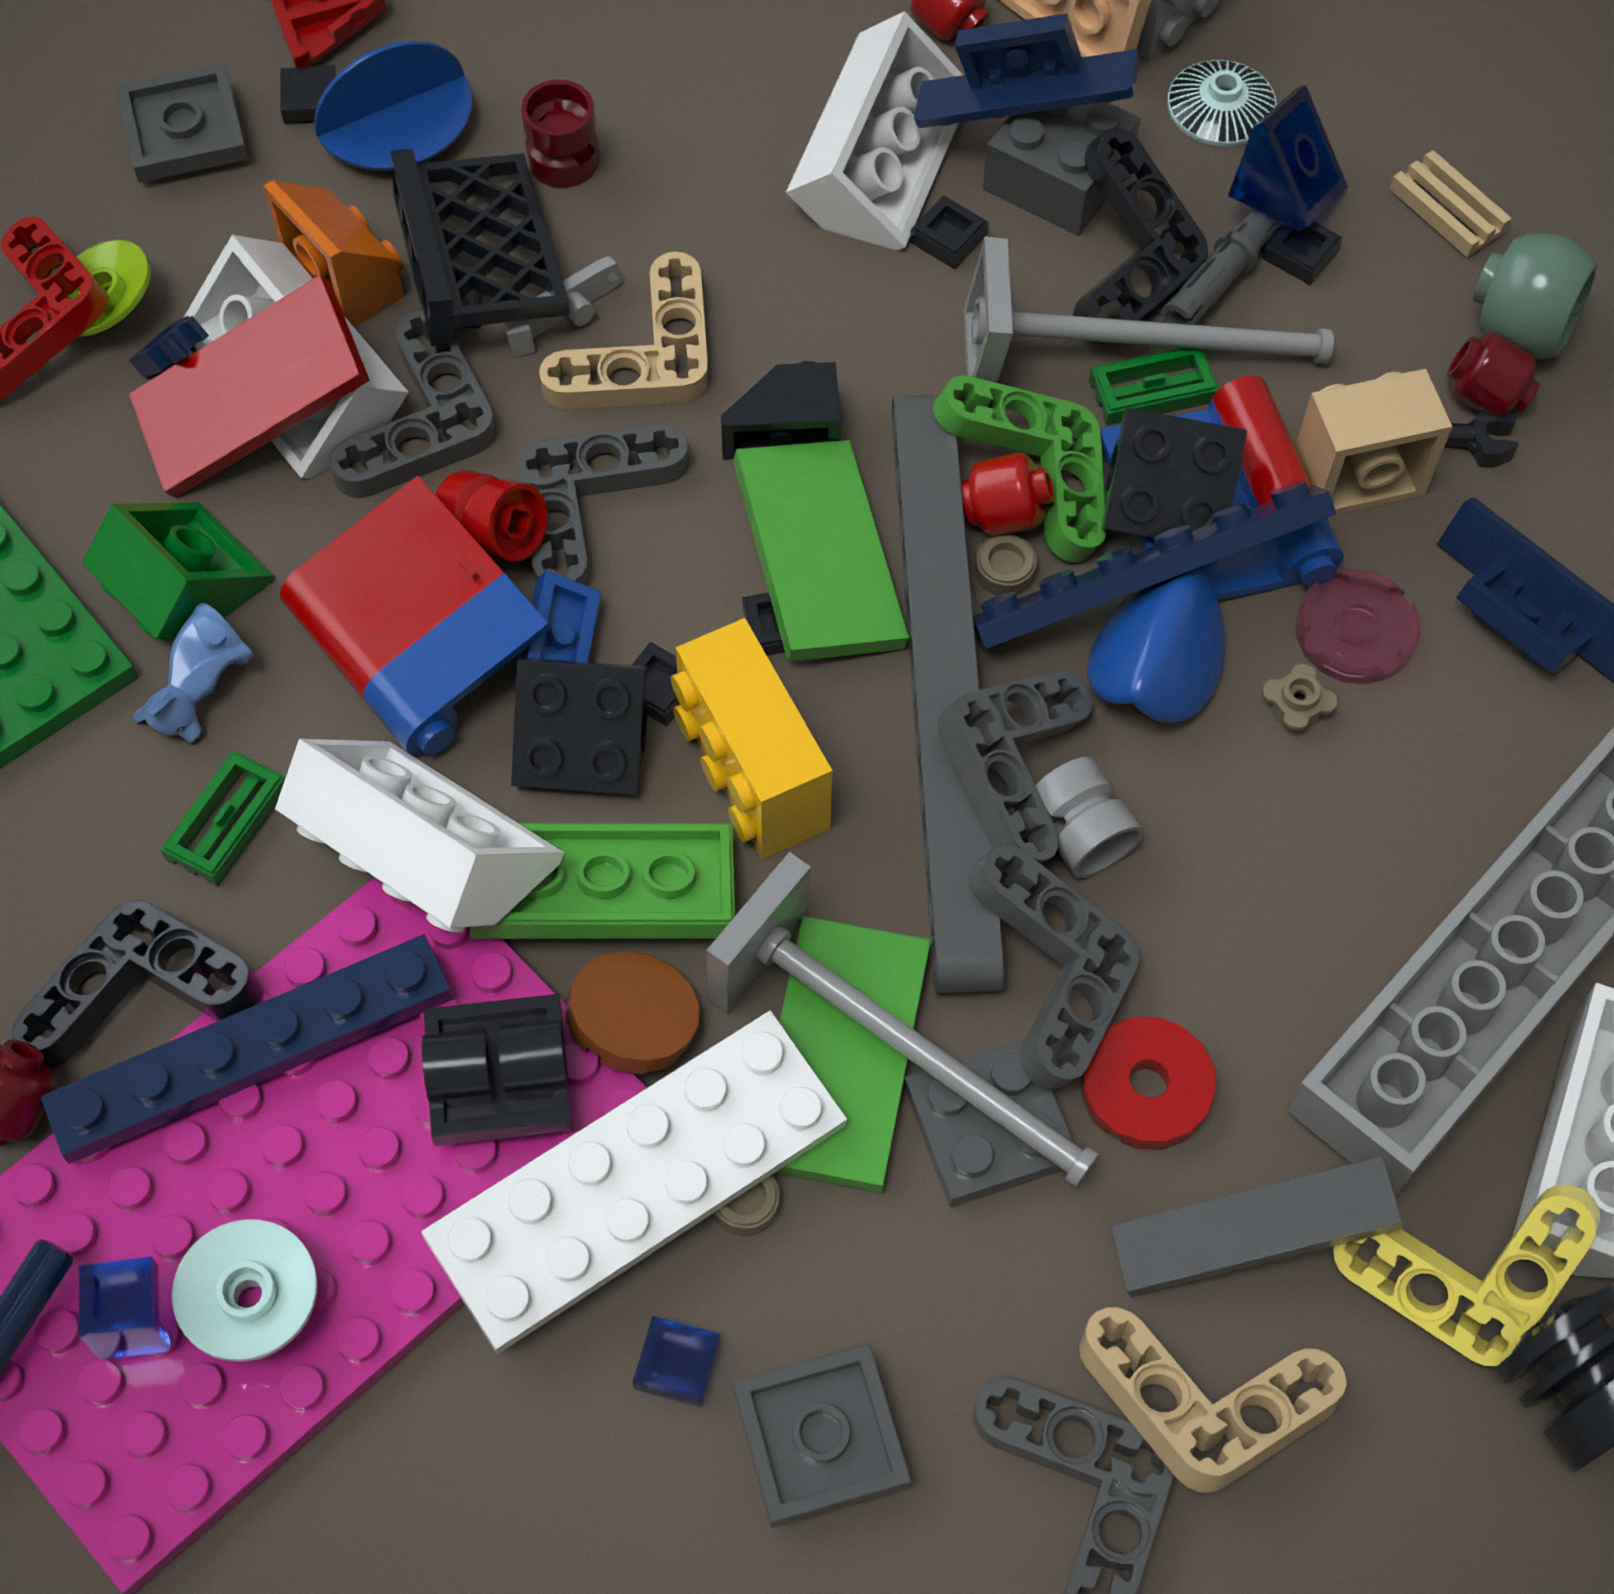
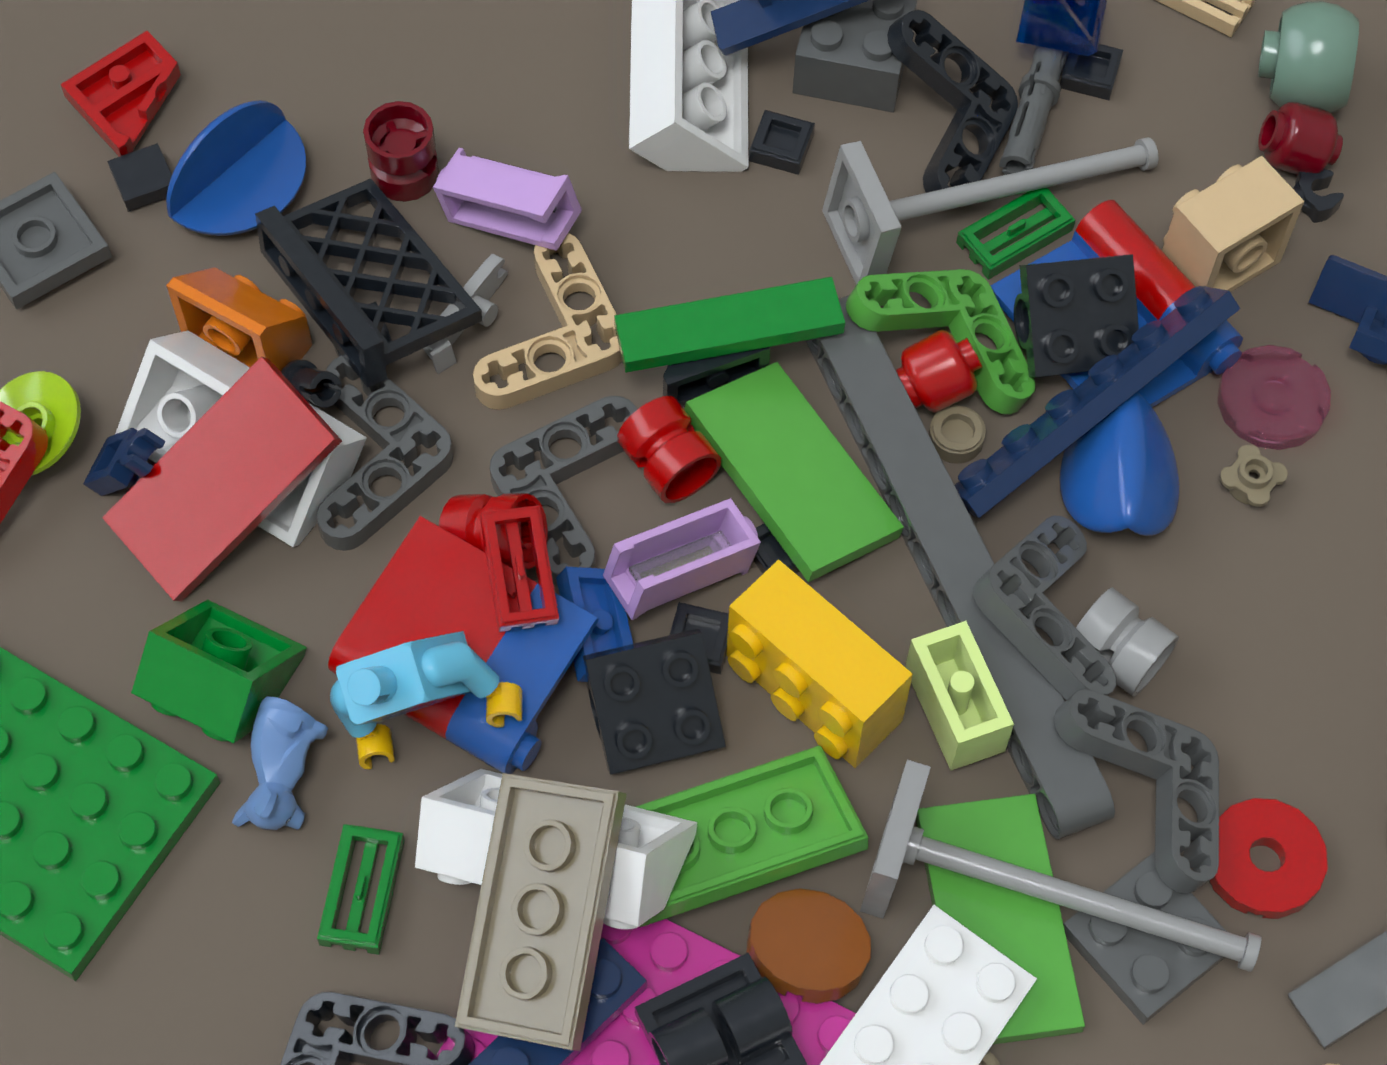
camera: 20 degrees left, 0 degrees up
(333, 623) = (412, 679): none -> medium azure torso
(359, 880) = (541, 911): none -> tile
(370, 315) = (312, 383): none -> black pin
(478, 599) = (526, 616): none -> red tile
(643, 207) = (507, 200): none -> lavender window
(665, 595) = (681, 557): none -> lavender window
(700, 490) = (670, 451): none -> red wheel
(805, 383) = (729, 324): none -> green tile
(888, 815) = (959, 695): none -> yellowish green brick

